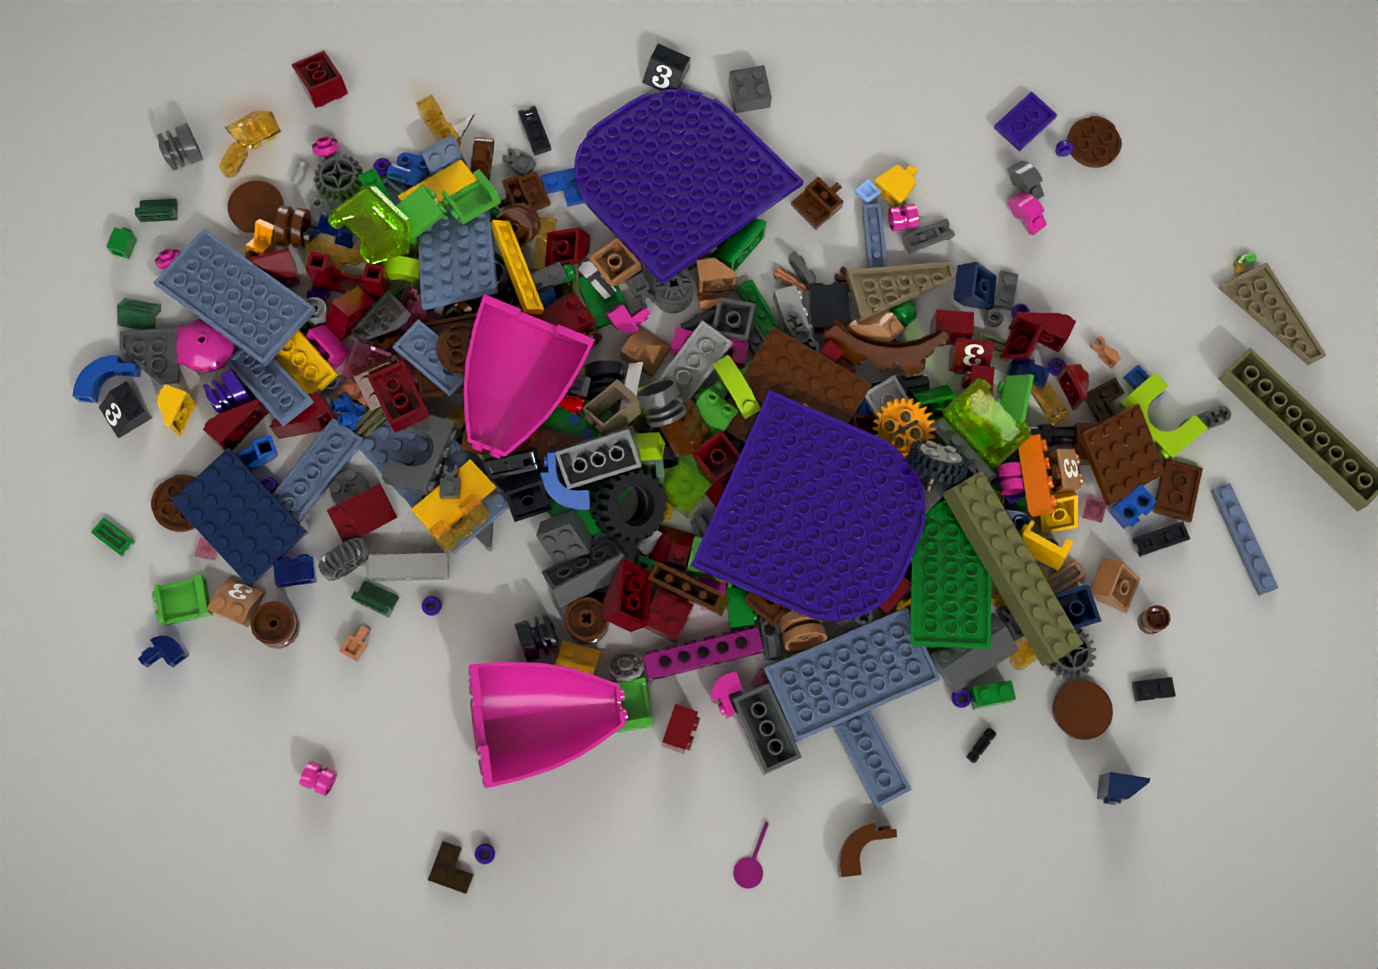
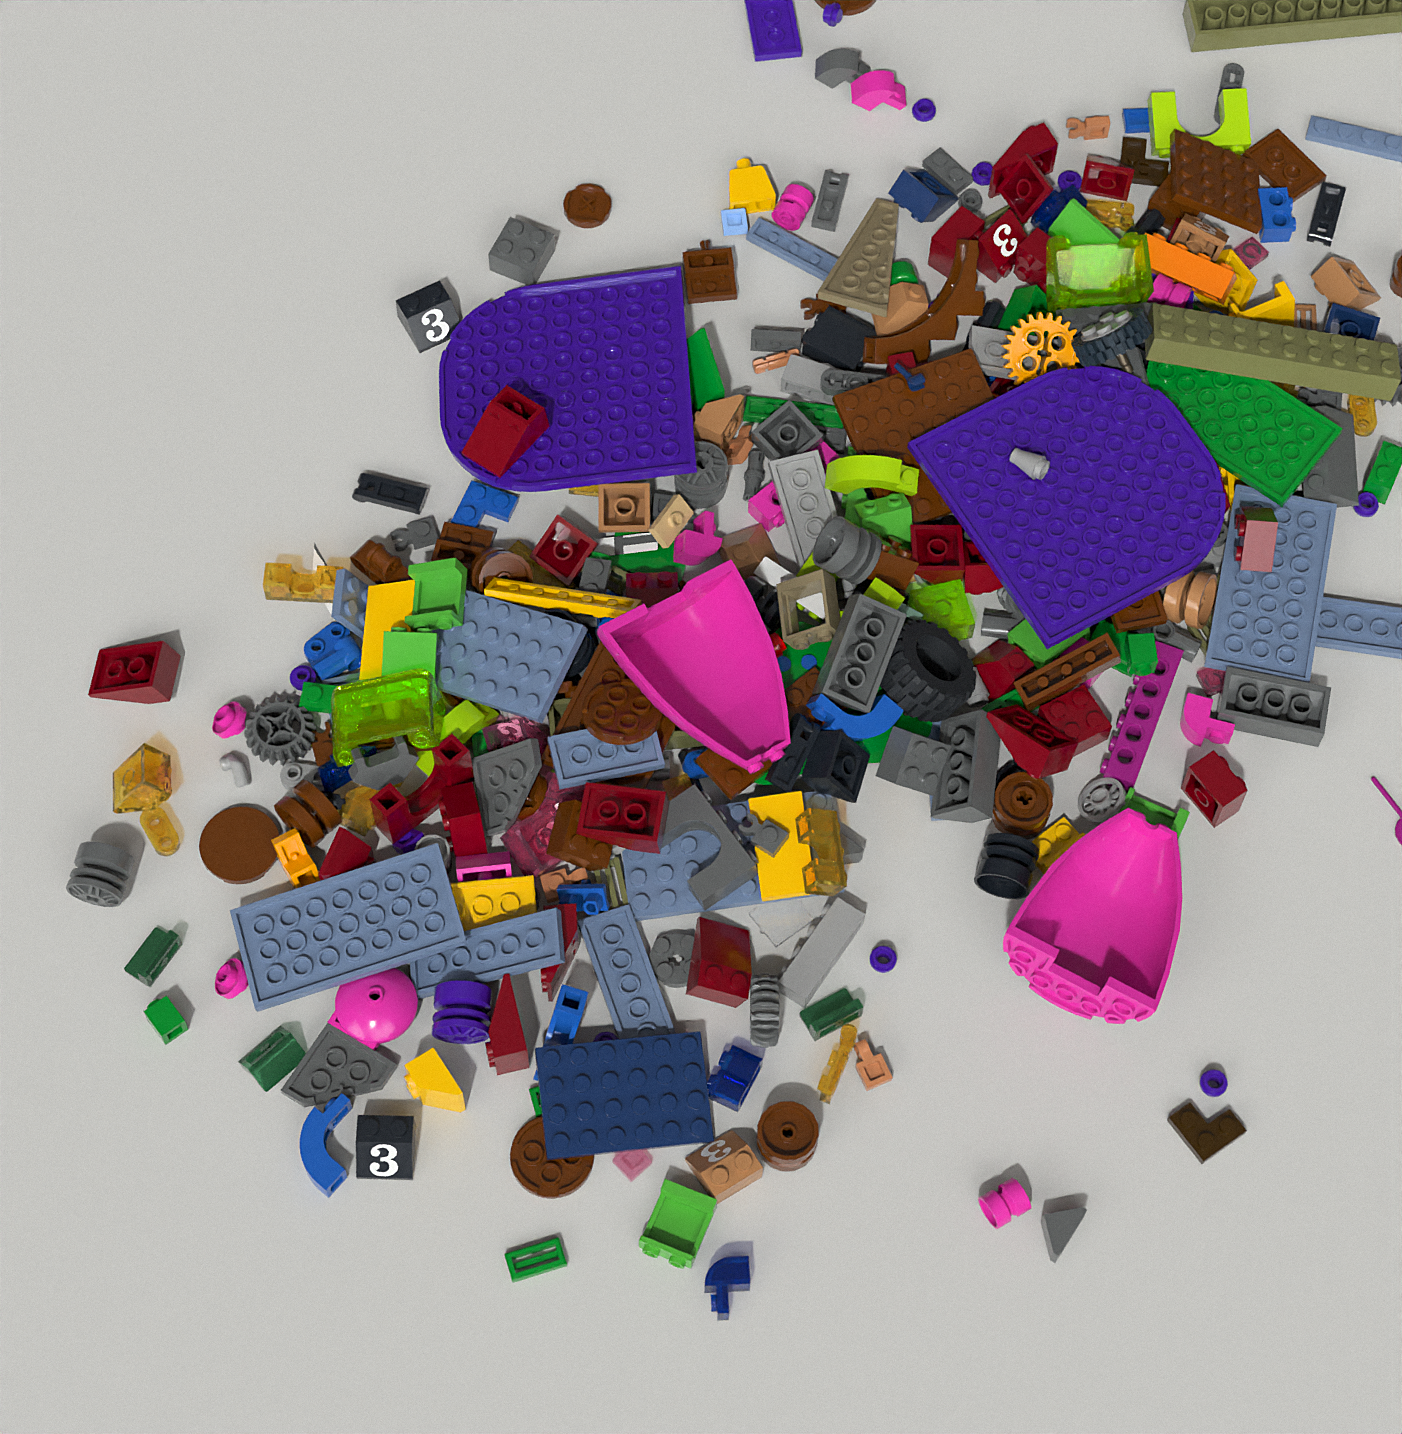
camera: 50 degrees left, 10 degrees down
(324, 821) = (1059, 1228): none -> dark grey slope
(342, 245) = (385, 767): none -> dark grey piece
(344, 623) = (838, 1062): none -> clear yellow plate
(608, 160) = (505, 431): none -> dark red slope
(627, 293) = (671, 521): none -> tan plate
(737, 625) = (1141, 654): none -> green brick
(807, 472) = (1032, 464): none -> light grey cone
(814, 104) = (587, 206): none -> reddish brown tile
(818, 366) = (914, 382): none -> dark blue hand
(869, 643) = (1258, 537): none -> brick
(1040, 243) = (924, 105): none -> dark purple plate

